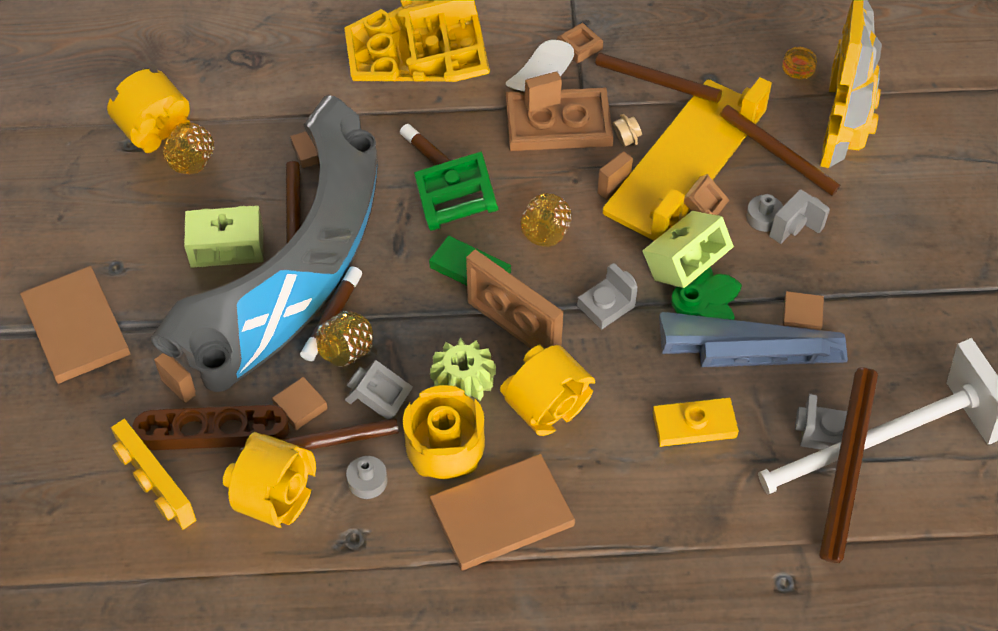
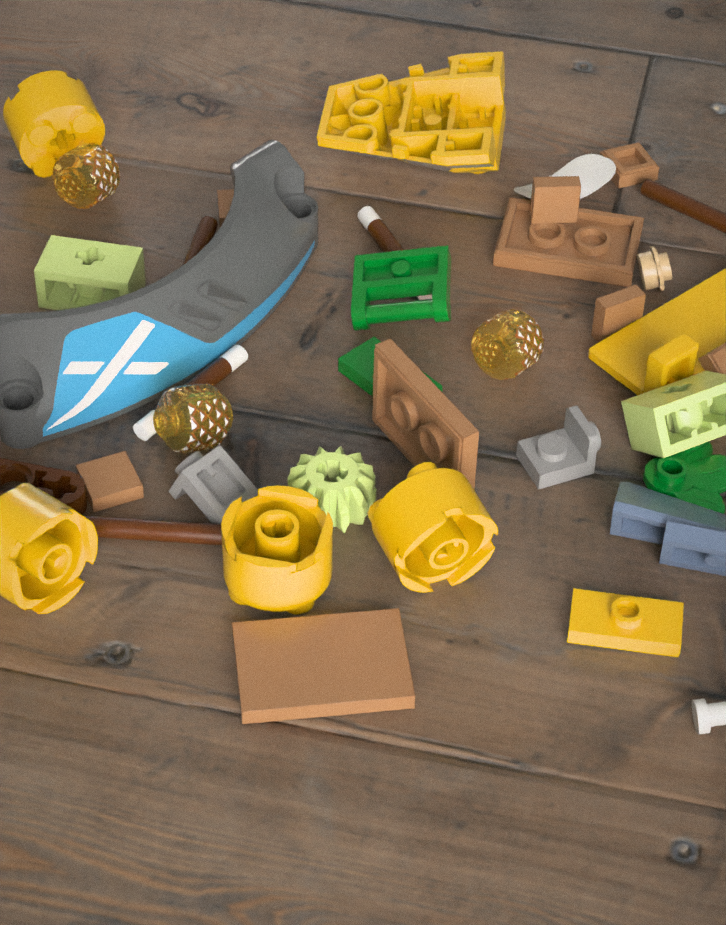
camera: 15 degrees right, 10 degrees down
(366, 477) = (161, 583): light grey tile -> none

